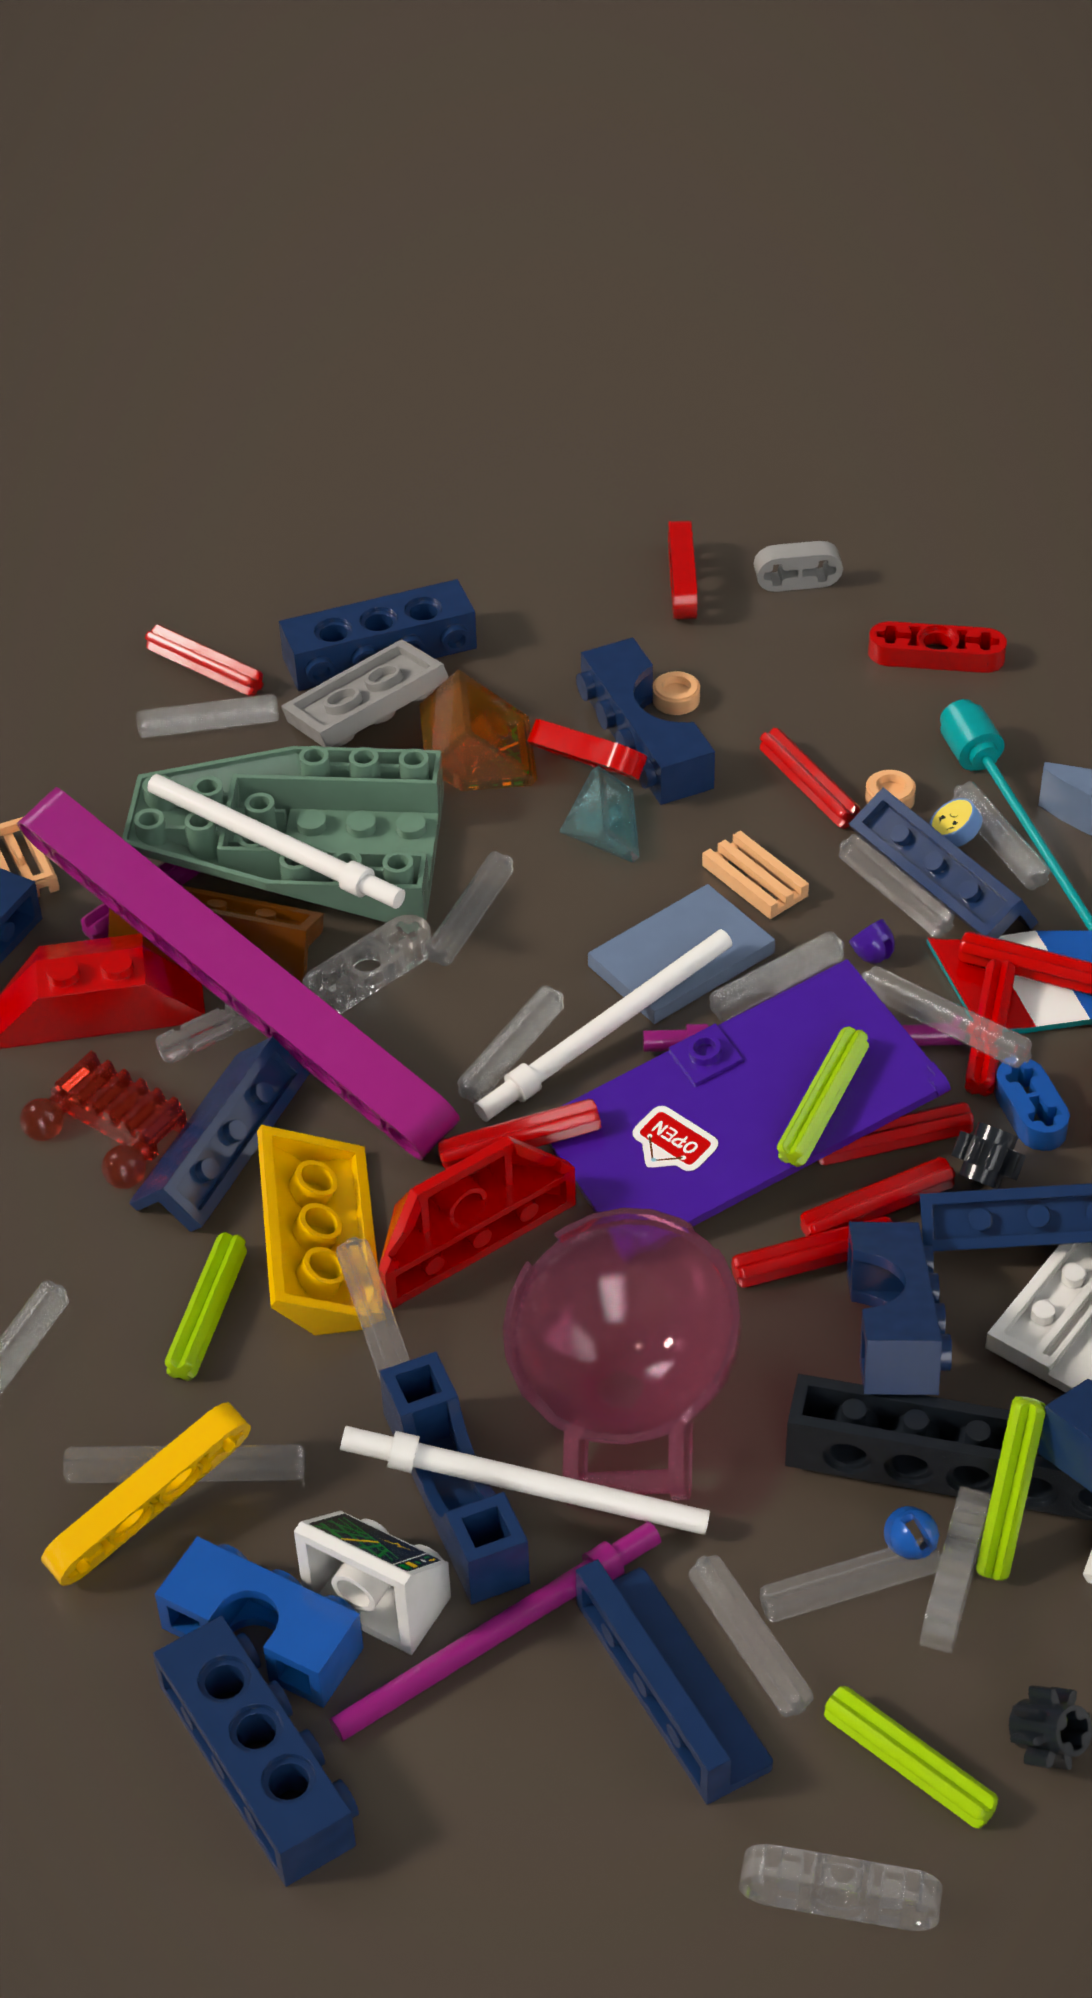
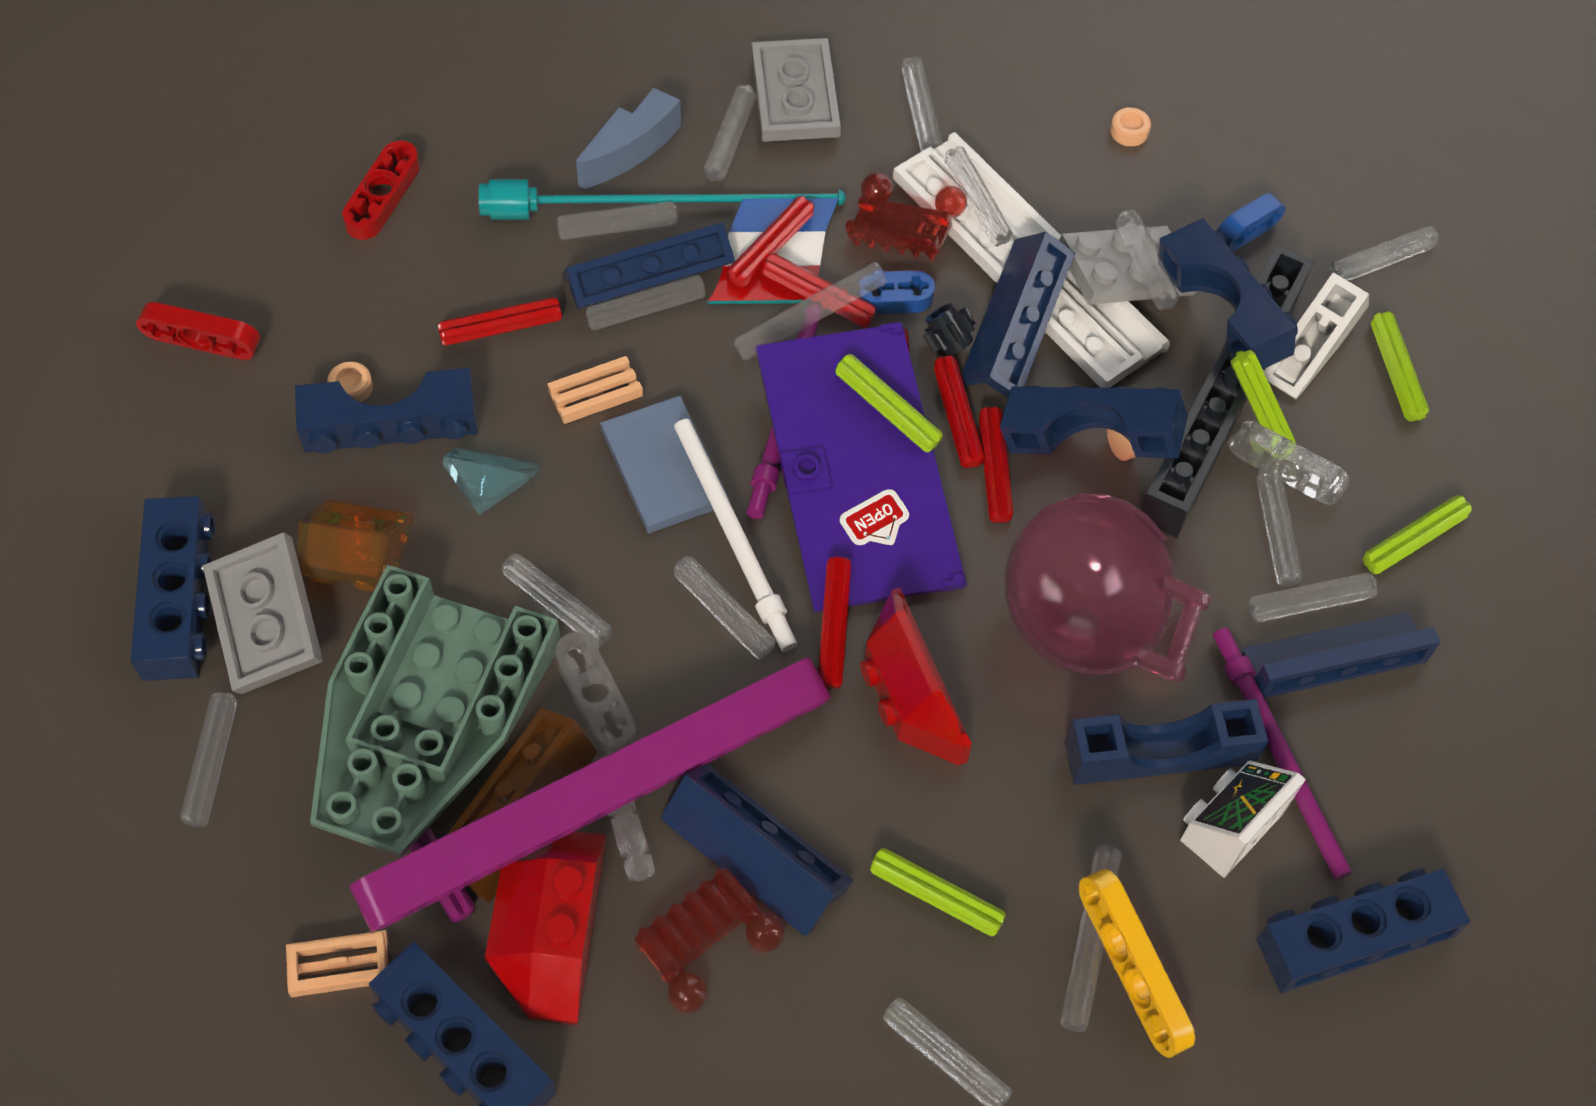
camera: 80 degrees left, 15 degrees up
(204, 660) = (123, 747): axle -> none
(311, 1205) = (887, 787): yellow slope -> none
(312, 1634) = (1227, 933): blue arch -> none
(352, 876) = (542, 663): white bar -> none
(371, 1304) = (992, 765): clear axle -> none
(406, 1452) = (1154, 760): white bar -> none
(587, 749) = (416, 460): red beam -> none
(776, 976) = (714, 407): clear axle -> none
(798, 566) = (238, 248): light grey beam -> none
(841, 1887) = (1511, 599): clear beam -> none
(874, 942) = (702, 334): dark purple hinge -> none
(895, 782) = (537, 274): light nougat tile -> none
(901, 1539) = (1271, 473): blue hinge -> none
(957, 821) = (599, 239): tile -> none
(1050, 1727) = (1420, 449): black gear -> none

